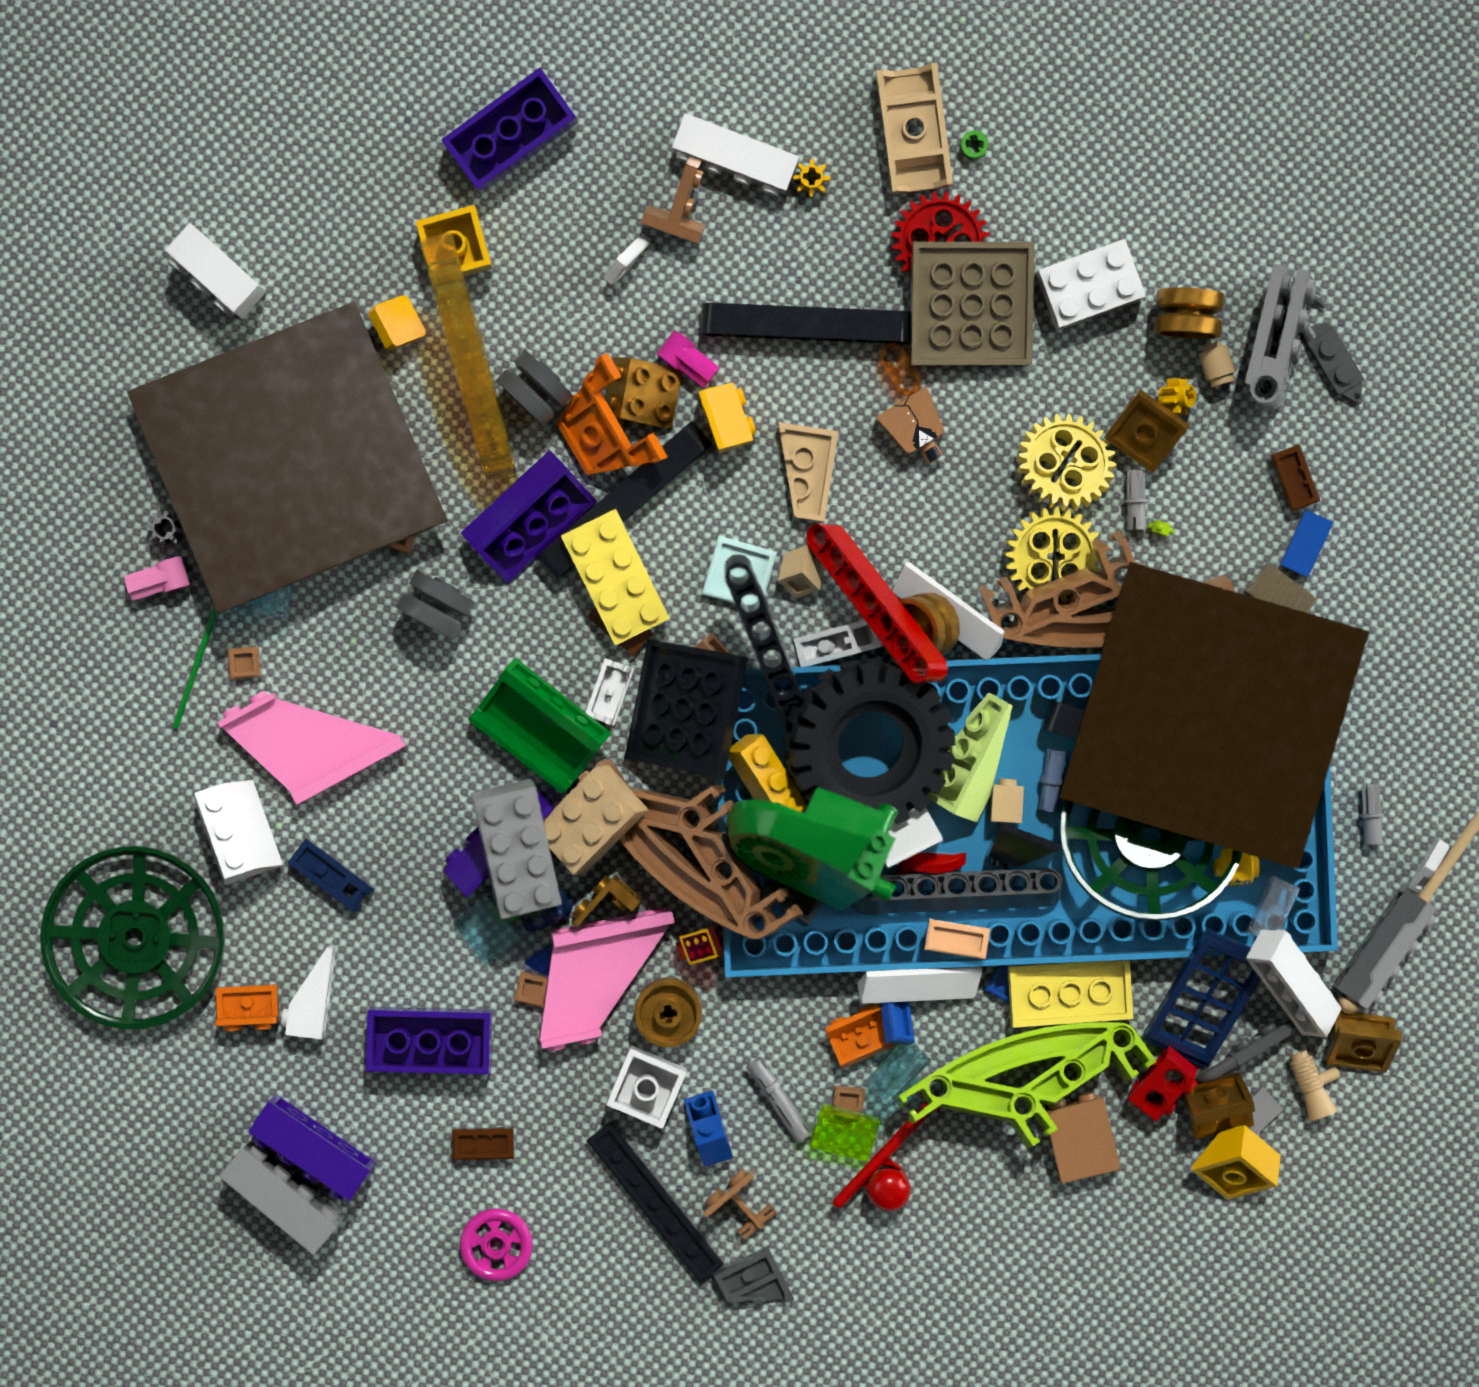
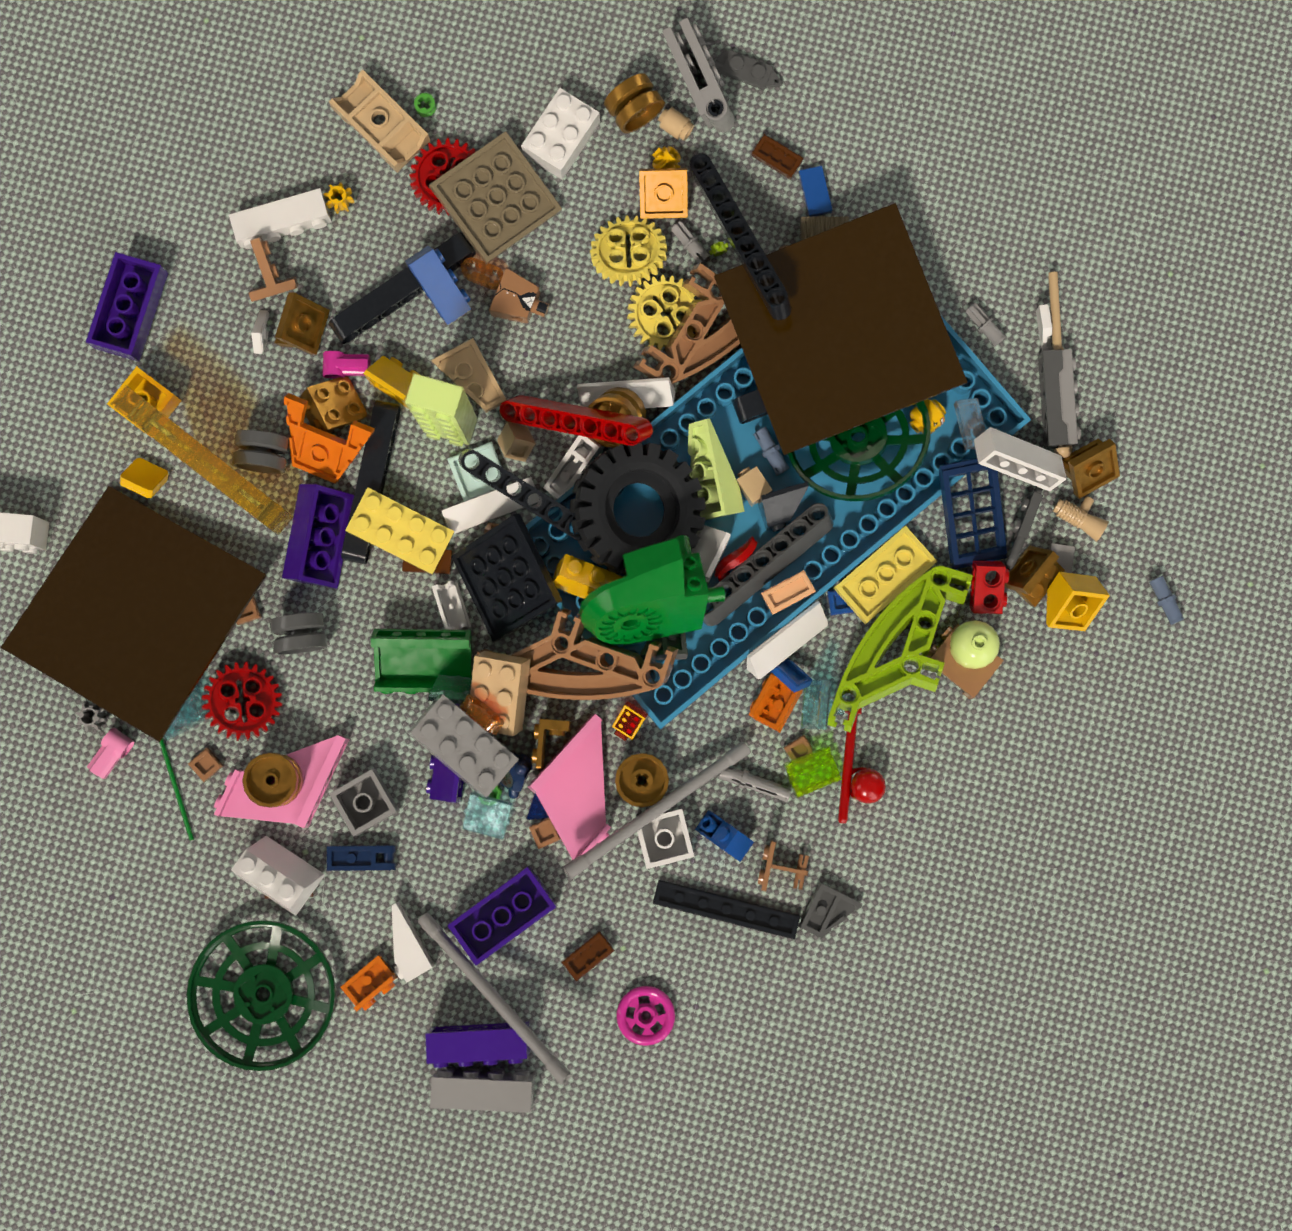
camera: 30 degrees left, 5 degrees down
(303, 615) = (219, 704): none -> red gear
(319, 729) = (287, 780): none -> pearl gold wheel
(371, 1227) = (551, 1062): none -> light grey piece
(375, 824) = (364, 802): none -> light grey brick
(549, 1052) = (584, 860): none -> light grey piece
(550, 779) = (453, 687): none -> clear light blue piece
(558, 832) = (482, 714): none -> clear orange beam
(673, 283) = (301, 324): none -> pearl gold bracket
(713, 614) = (484, 508): none -> white slope
(748, 496) = (441, 410): none -> yellowish green brick
(845, 352) = (439, 284): none -> brick
(1103, 1131) = (974, 644): none -> yellowish green cylinder
(1187, 552) = (740, 237): none -> black beam
(1333, 1232) = (1166, 600): none -> sand blue pin

